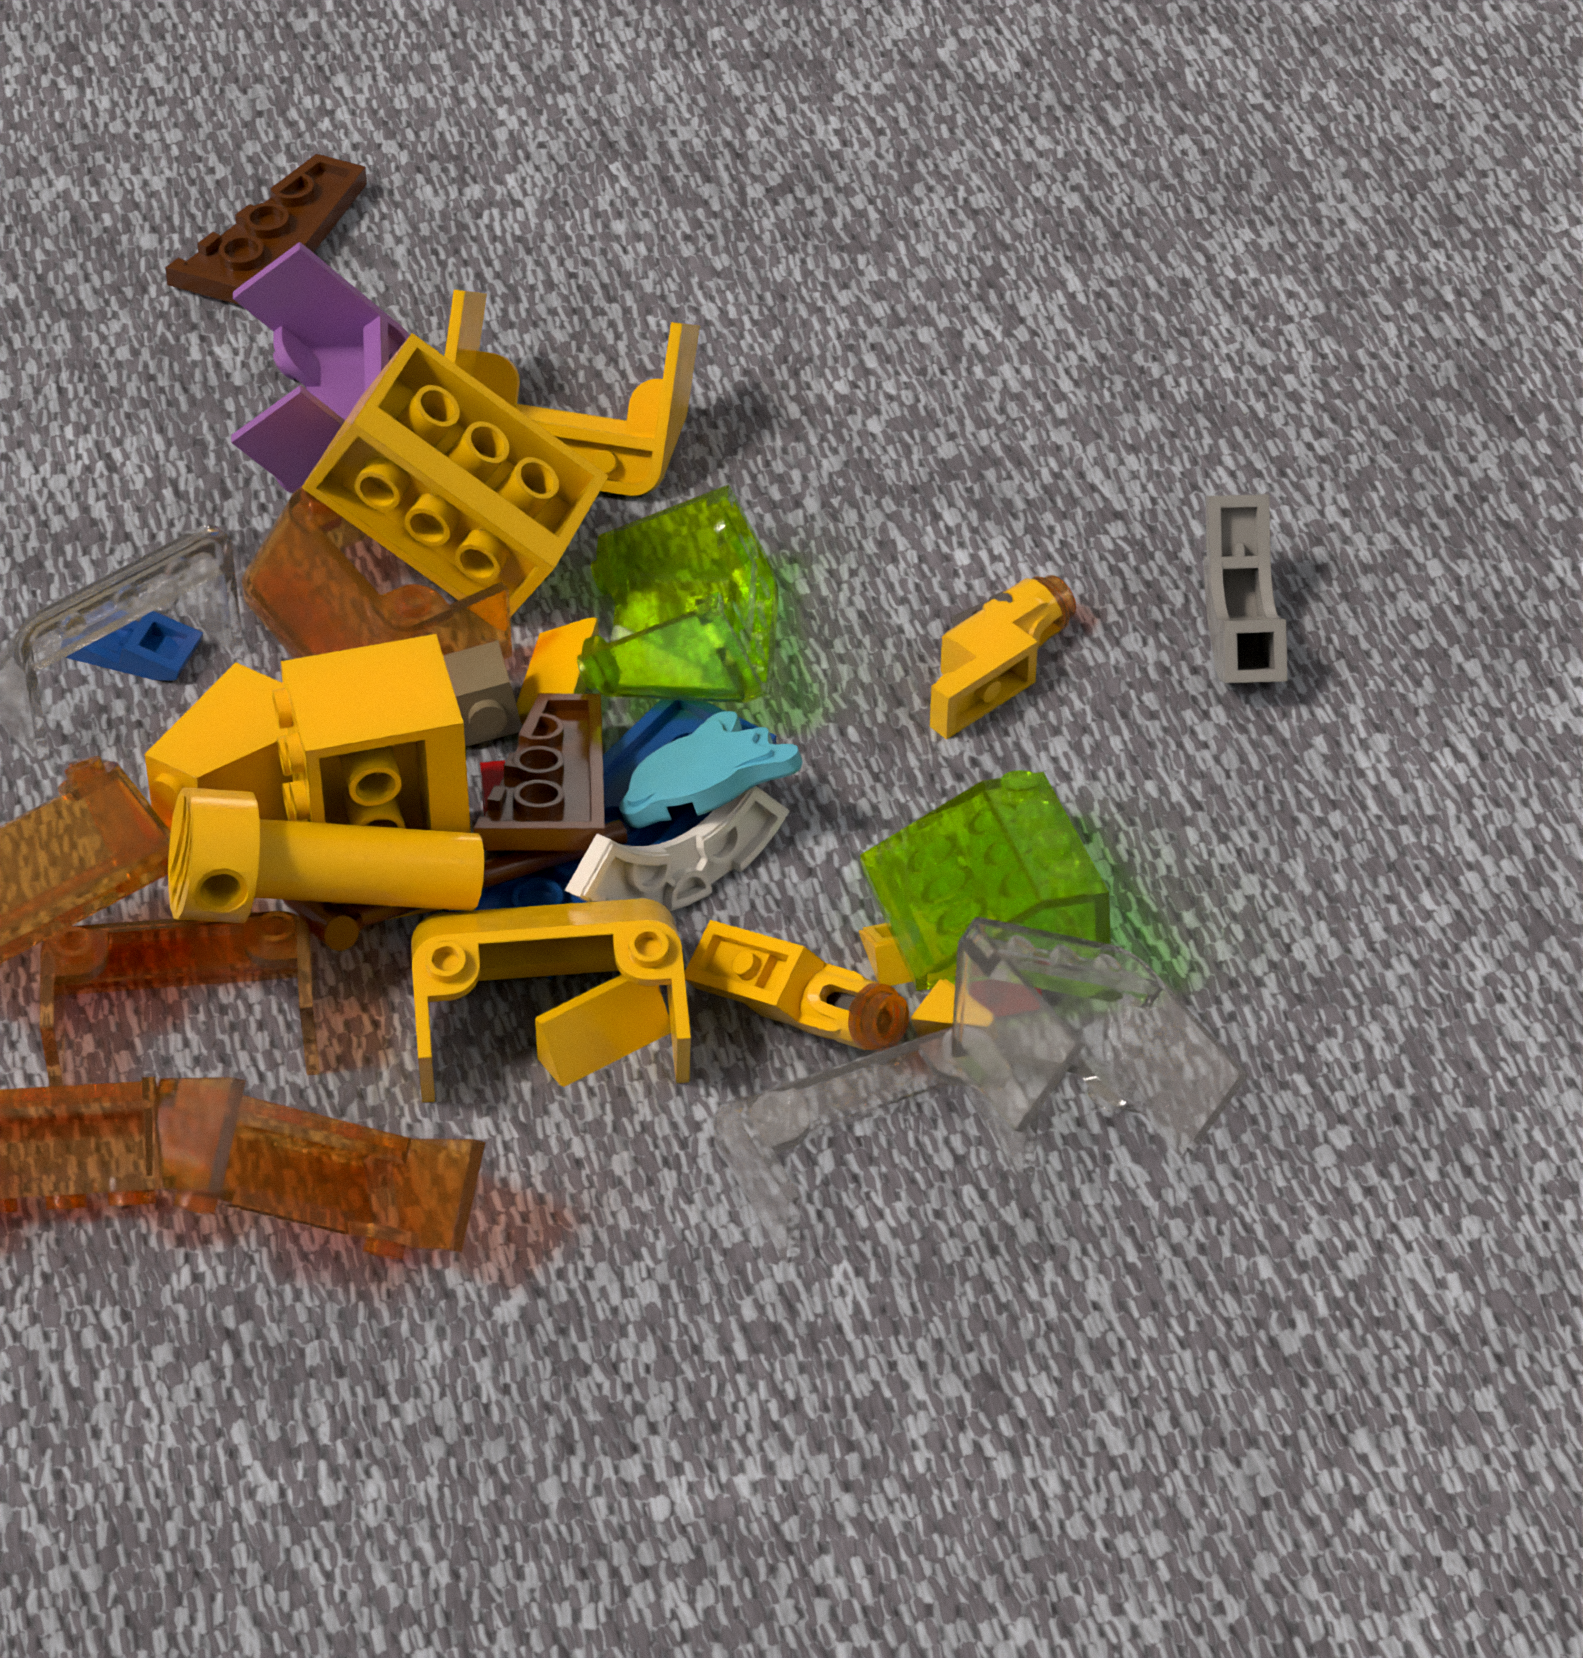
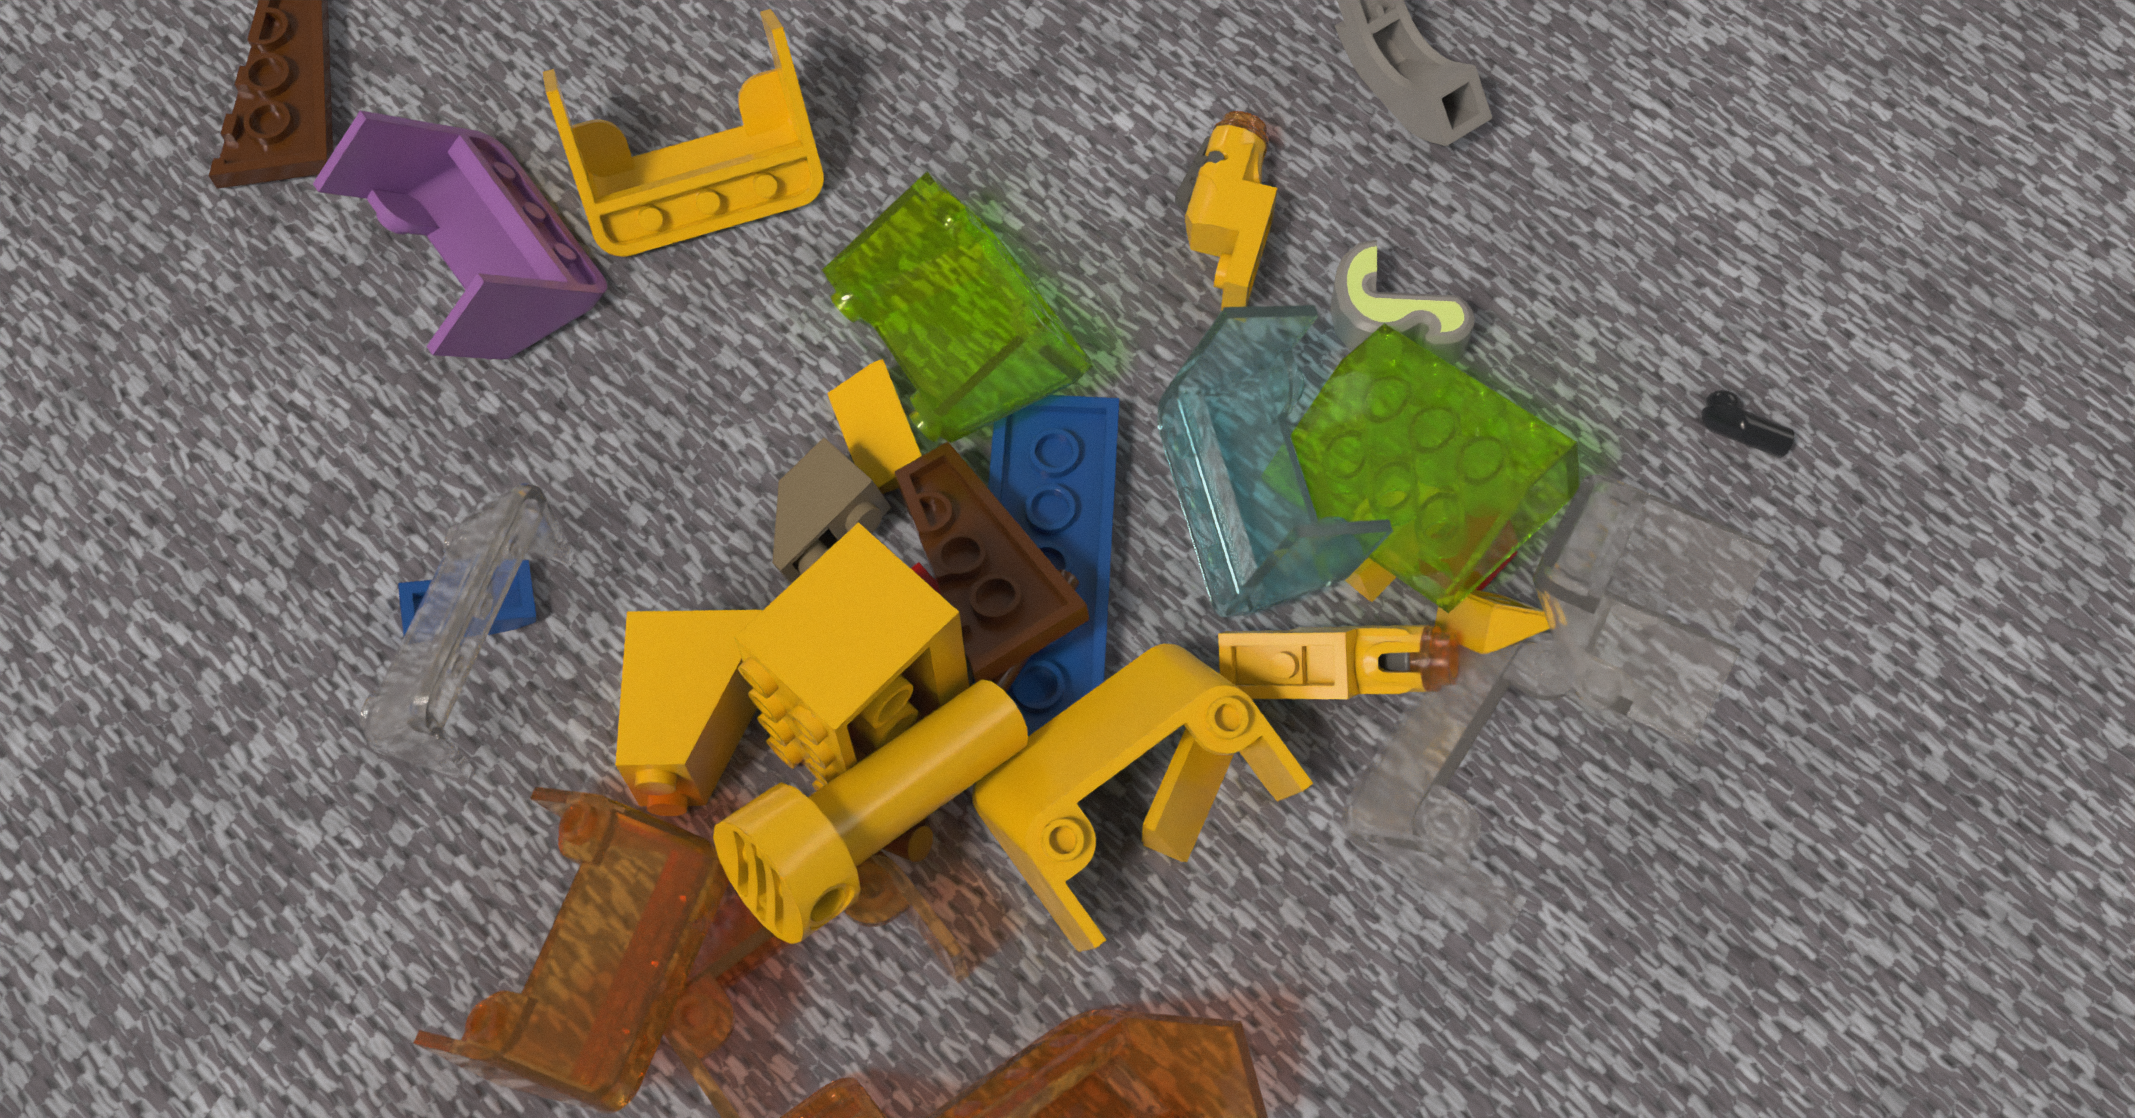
camera: 30 degrees left, 20 degrees up
(324, 604) = (644, 488): clear orange windscreen -> none
(455, 478) = (680, 295): yellow brick -> none
(683, 867) = (1138, 588): white tile -> none
(705, 769) = (1106, 478): medium azure tile -> none
(832, 846) = (1241, 471): none -> clear light blue windscreen
(1094, 802) = (1431, 320): none -> light grey animal
(1321, 1002) = (1727, 419): none -> black arm

